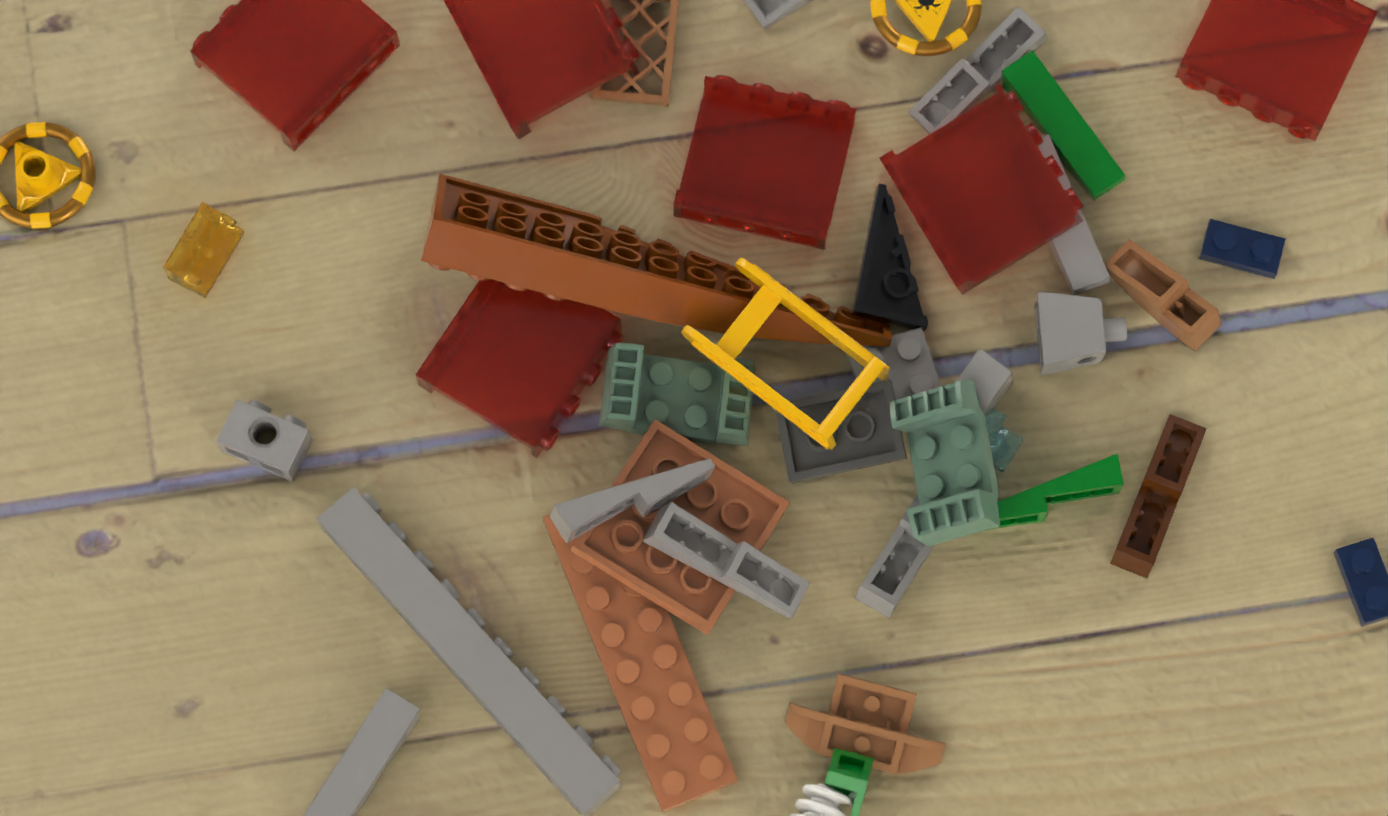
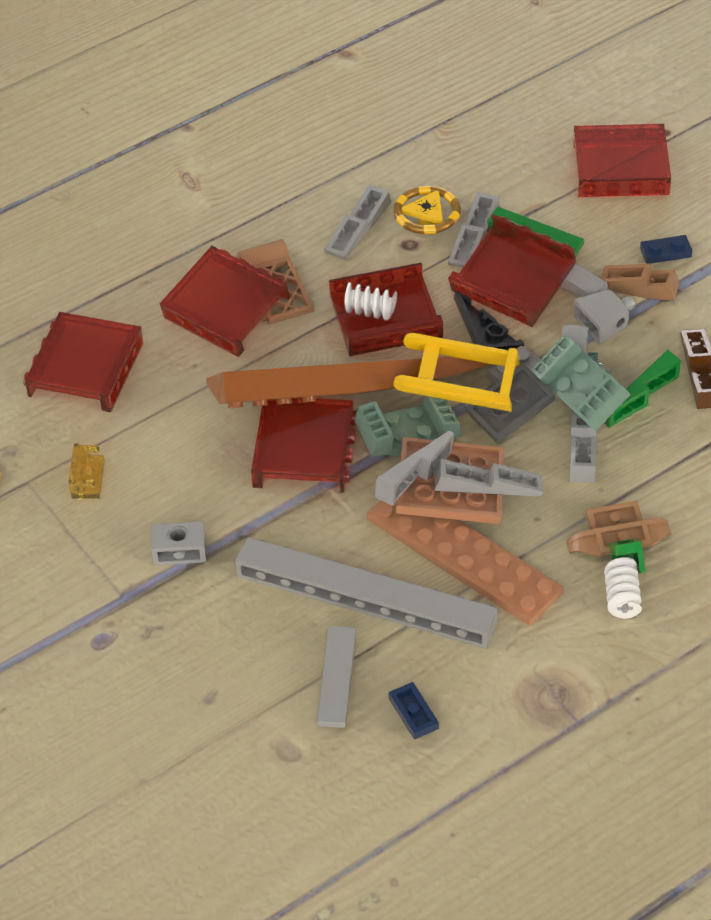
camera: 25 degrees left, 25 degrees down
(740, 148) = (369, 302): none -> white piece

